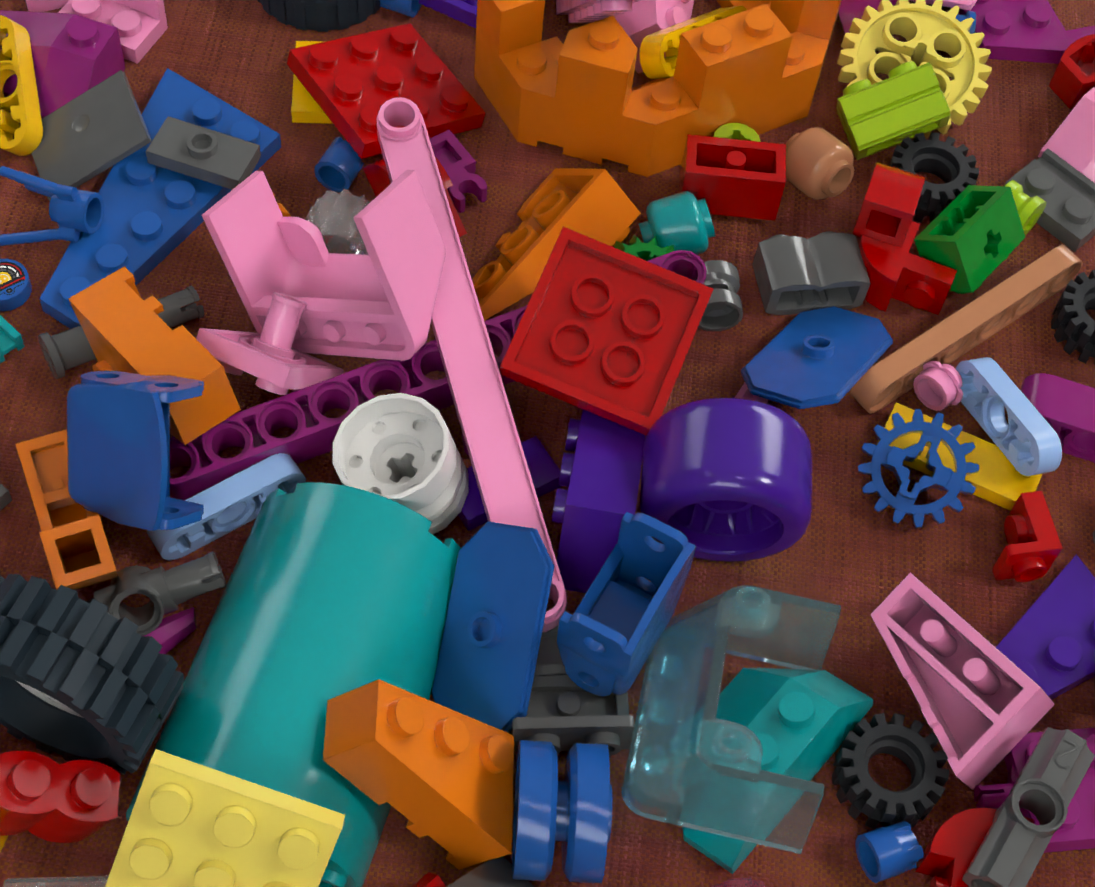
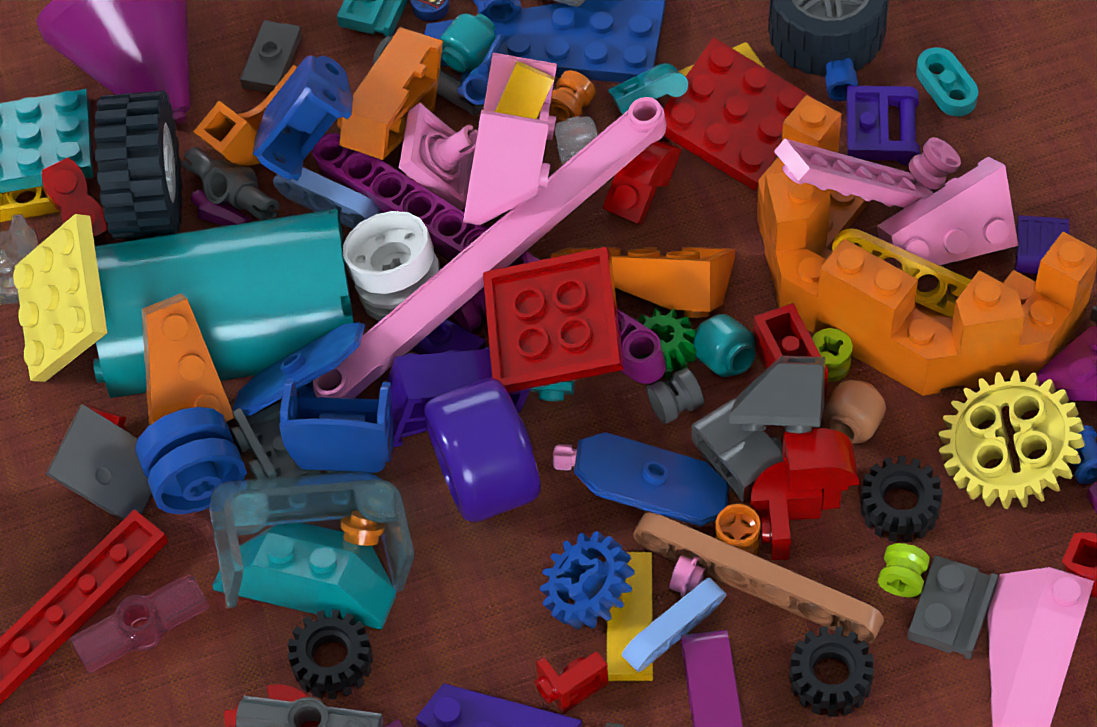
camera: 75 degrees right, 0 degrees up
(122, 244) = (467, 41): none -> teal head
(197, 266) = (475, 84): none -> blue plant
(203, 153) = (592, 40): dark grey plate -> none
(273, 239) = (525, 92): none -> yellow tile
(313, 135) = (652, 83): none -> teal plate
(460, 169) = (687, 181): magenta plate -> none
(746, 661) = (361, 530): none -> orange plate
(820, 180) = (784, 395): none -> dark grey slope
(888, 851) = (268, 670): blue hose -> none
(892, 109) = (936, 436): lime brick -> none
(912, 313) = (739, 522): none -> orange wheel
(962, 681) = (416, 660): bright pink wedge -> none
(973, 235) = (821, 525): green brick -> none

